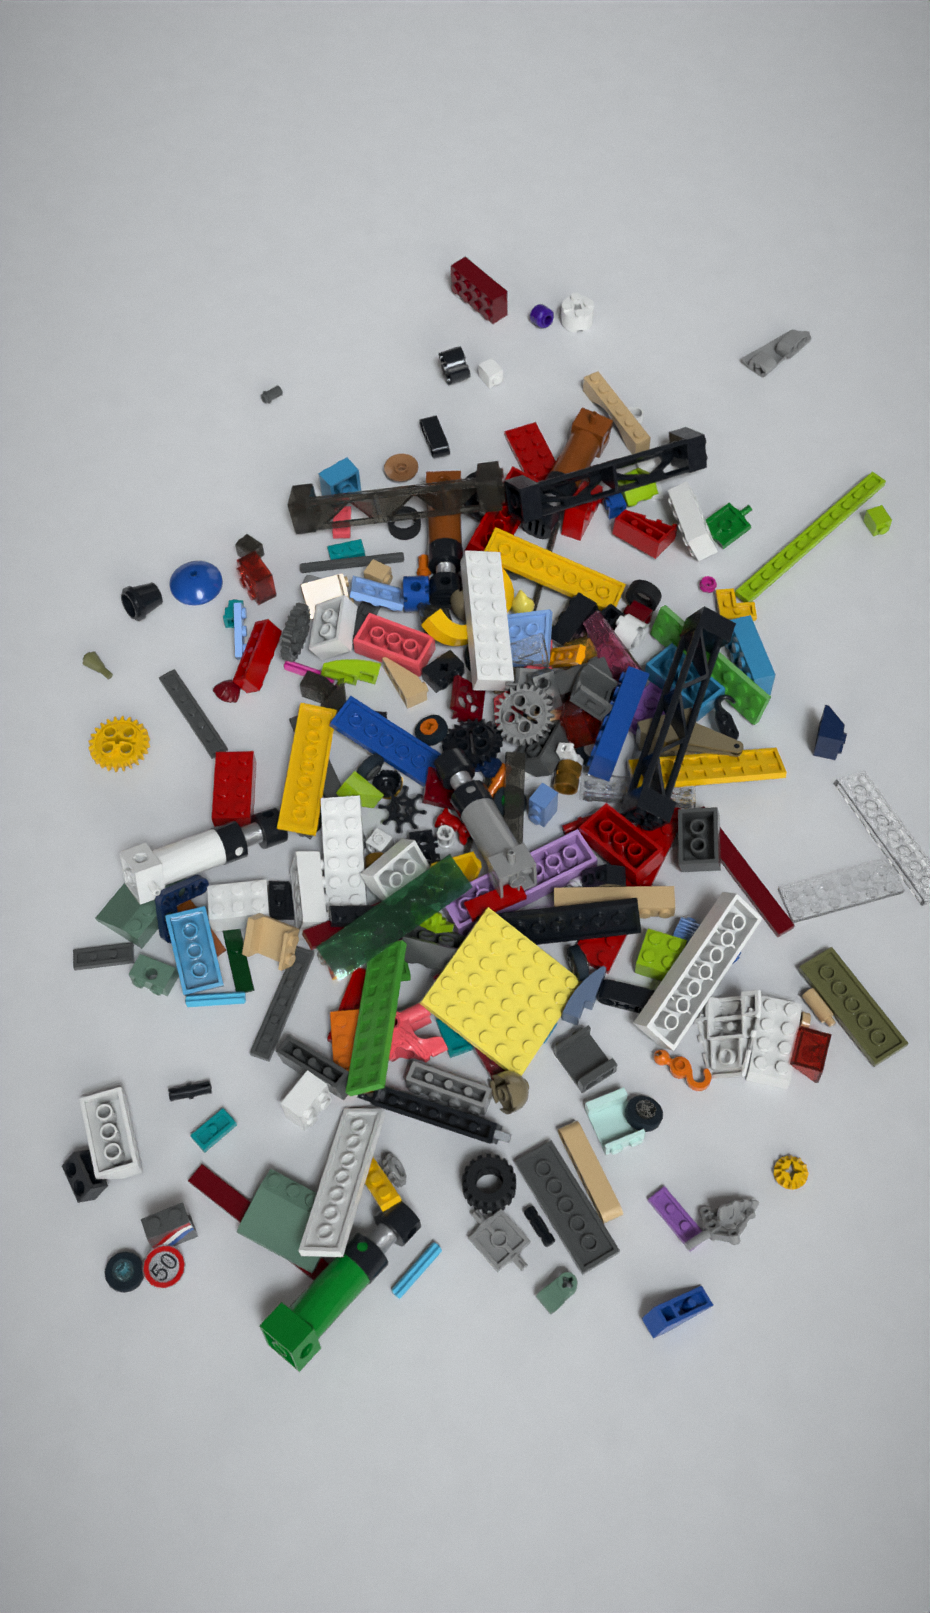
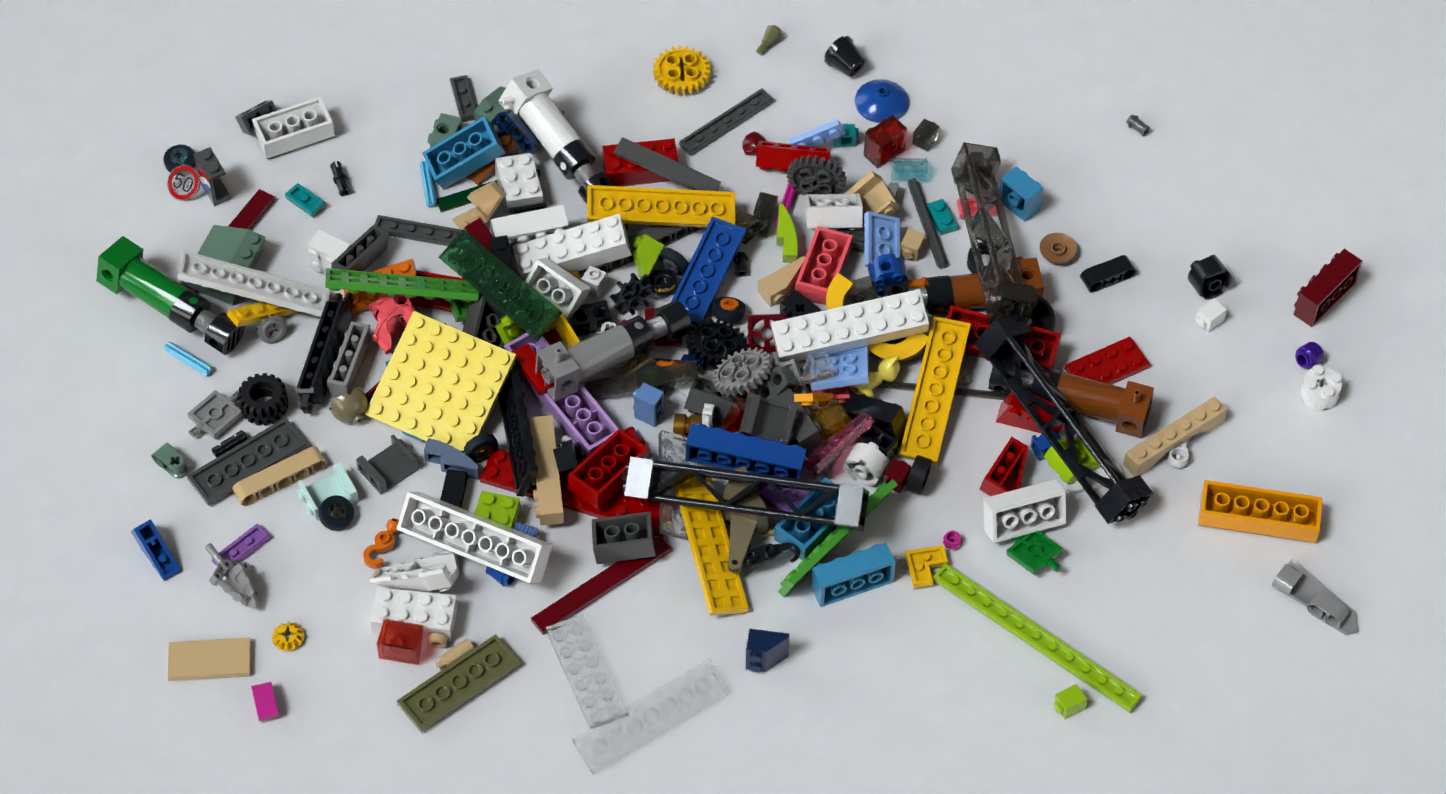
camera: 80 degrees right, 5 degrees down
(256, 760) = (665, 166): none -> dark grey tile
(287, 566) = (909, 168): none -> clear light blue bracket
(698, 368) = (1260, 511): none -> light orange brick
(817, 1257) = (209, 659): none -> tan tile
(873, 1197) = (265, 701): none -> dark pink beam

